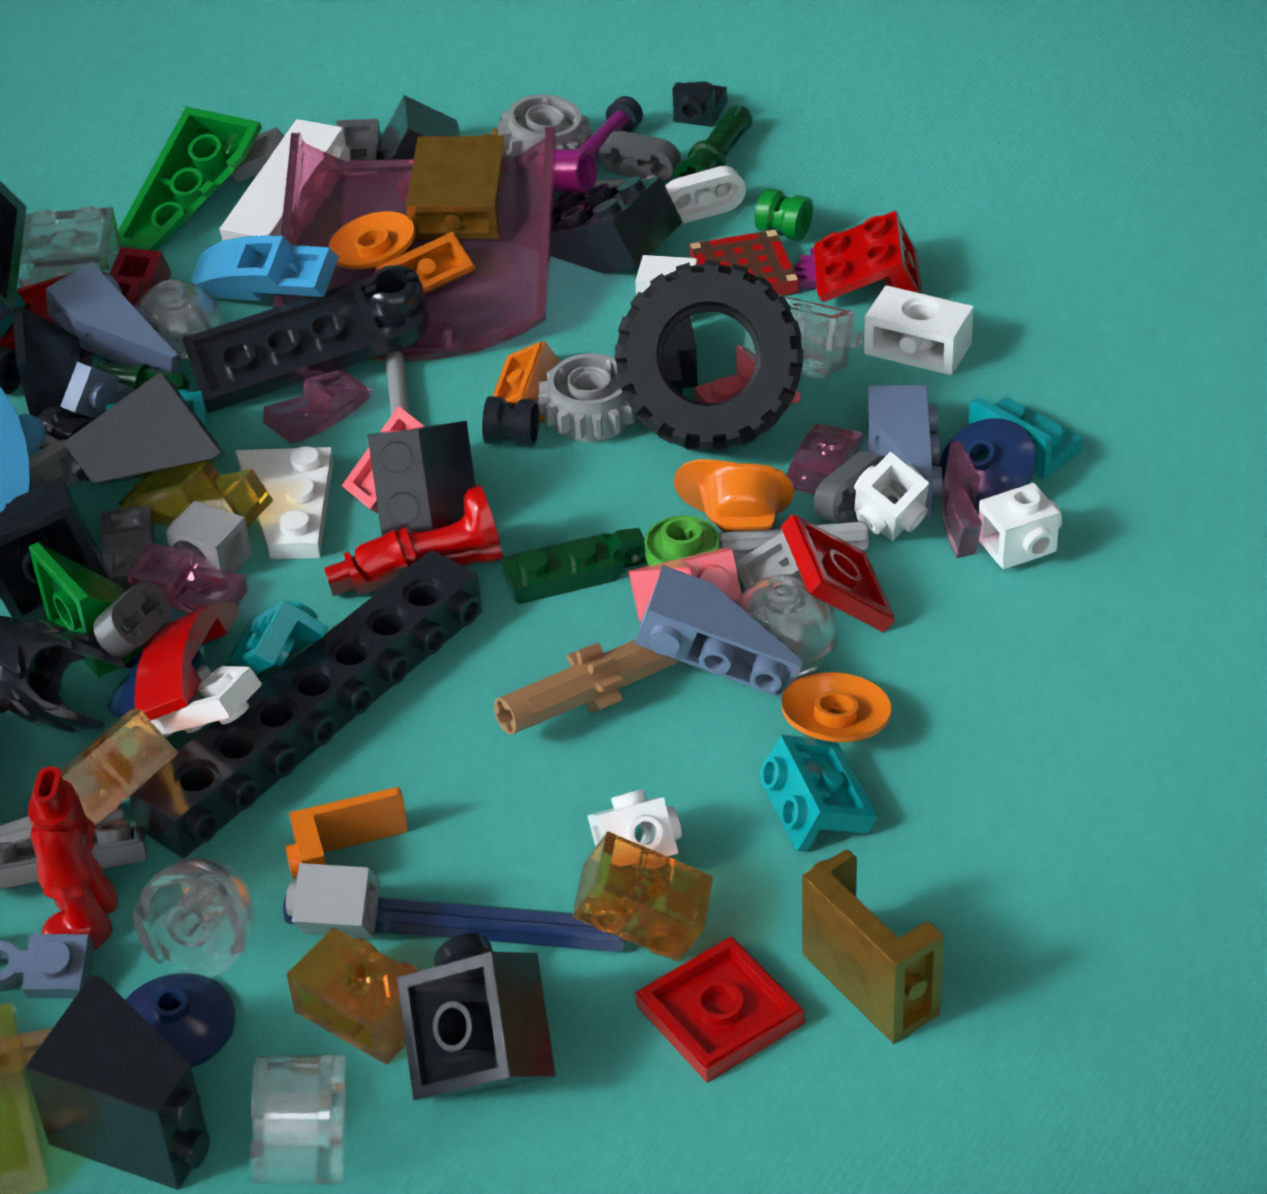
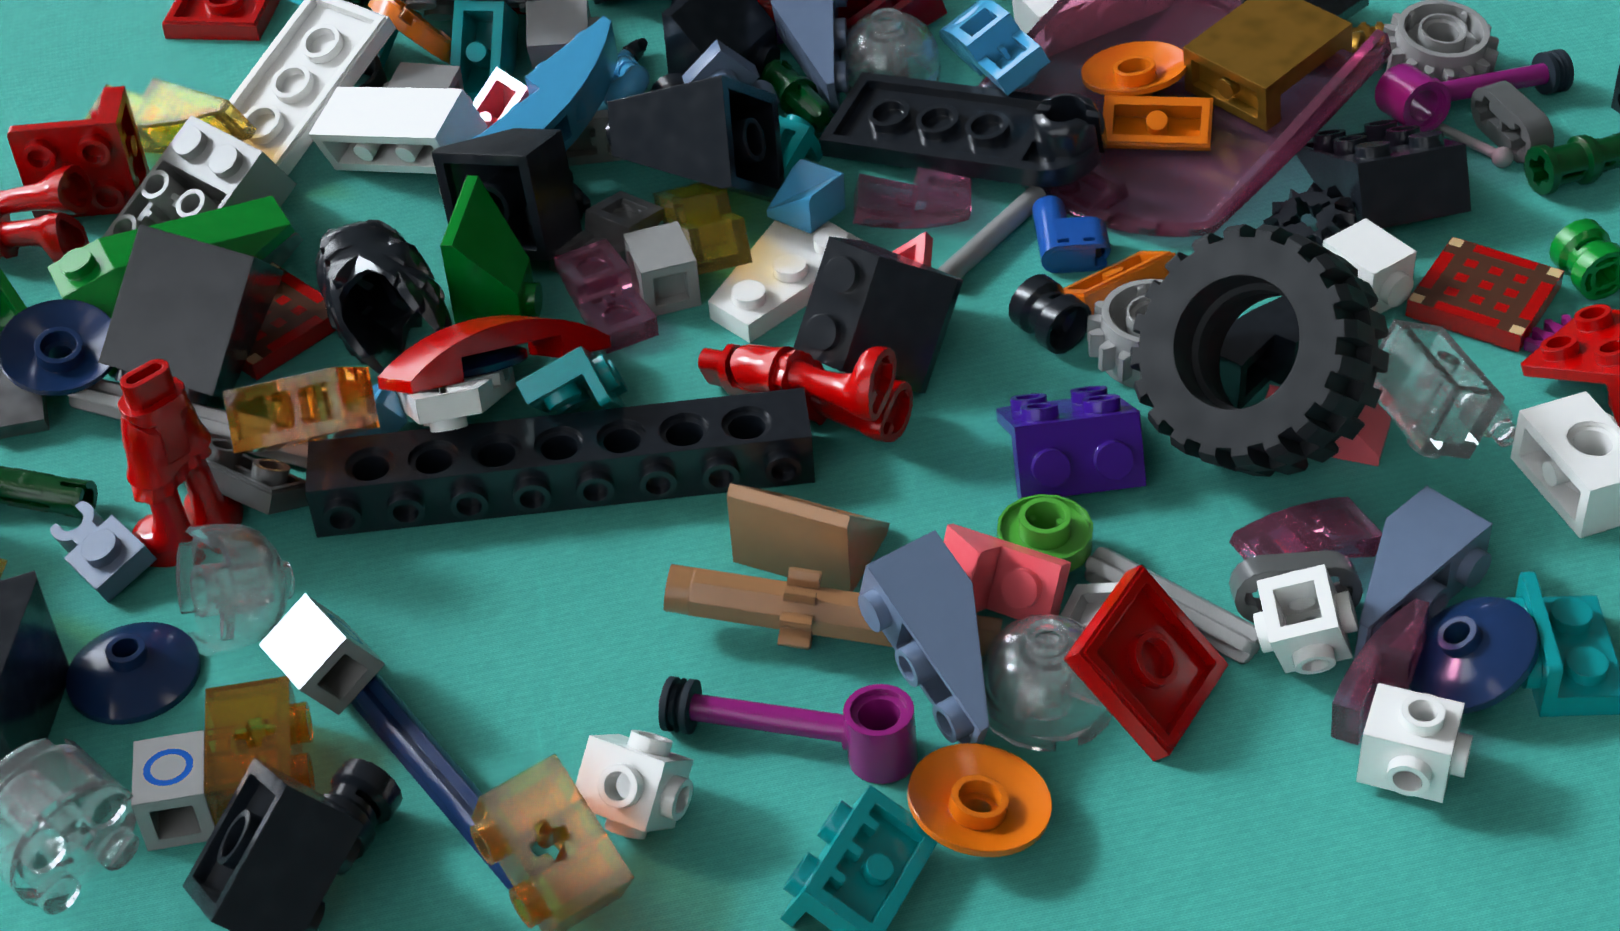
camera: 45 degrees right, 0 degrees up
(127, 612) = (479, 278): dark grey beam -> none
(258, 436) = (808, 196): none -> dark azure slope
(338, 1031) = (170, 790): none -> light grey brick
(344, 825) = (408, 583): orange bracket -> none
(457, 375) = (1069, 243): none -> blue piece
(532, 641) = (786, 532): none -> medium nougat slope
(572, 564) = (932, 486): dark green hinge -> none
(602, 295) = (1328, 206): none -> black gear
(625, 480) = (1074, 443): none -> dark purple bracket
(700, 196) = (1528, 193): white plate -> none
(729, 720) = (874, 725): none -> magenta piece
(735, 493) = (1152, 520): orange piece -> none

